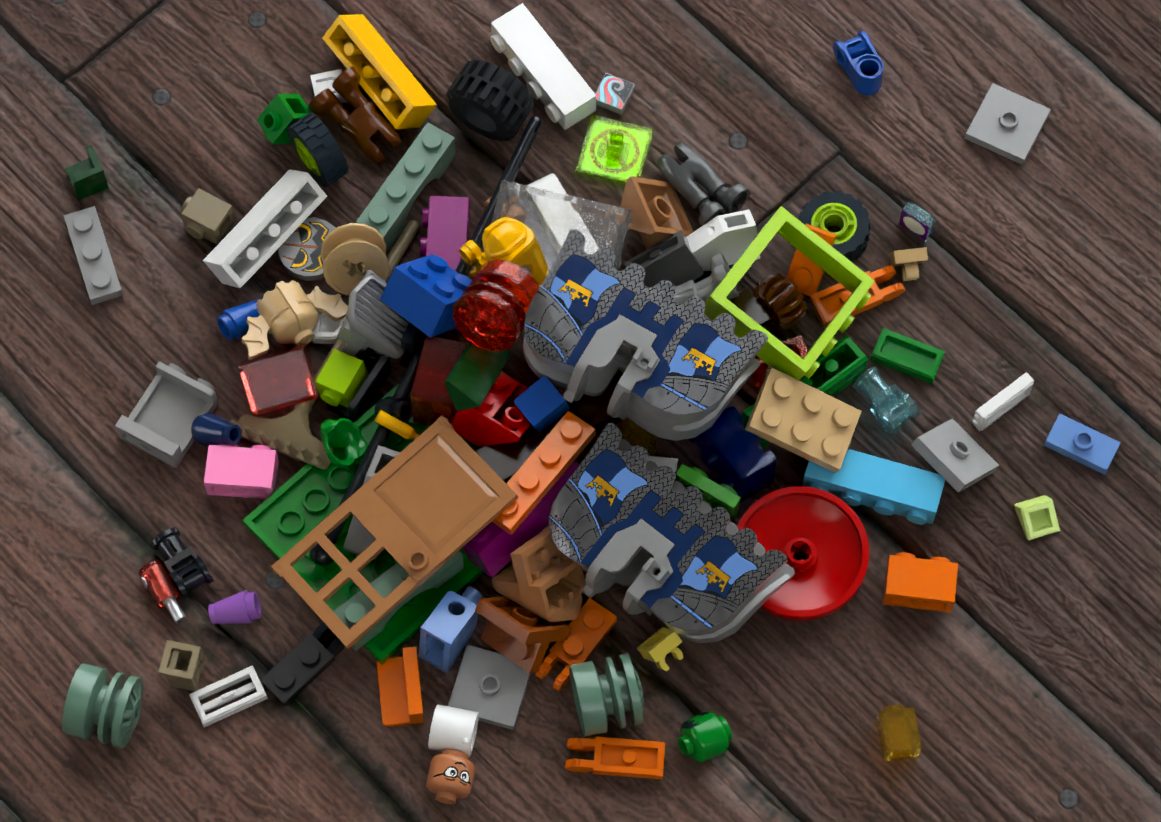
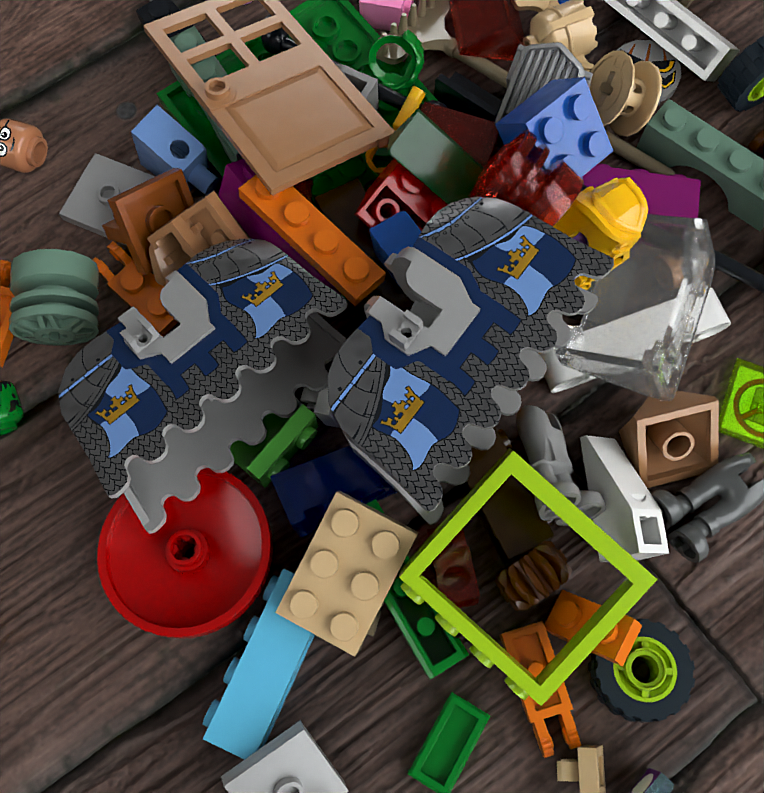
camera: 100 degrees right, 5 degrees up
(341, 378) = (479, 71): lime brick -> none
(400, 690) = (117, 116): orange panel -> none
(453, 729) = (63, 151): white piece -> none
(669, 261) = (595, 437): dark grey panel -> none
(887, 403) = (379, 702): clear light blue connector -> none
(920, 582) = (117, 702): orange brick -> none

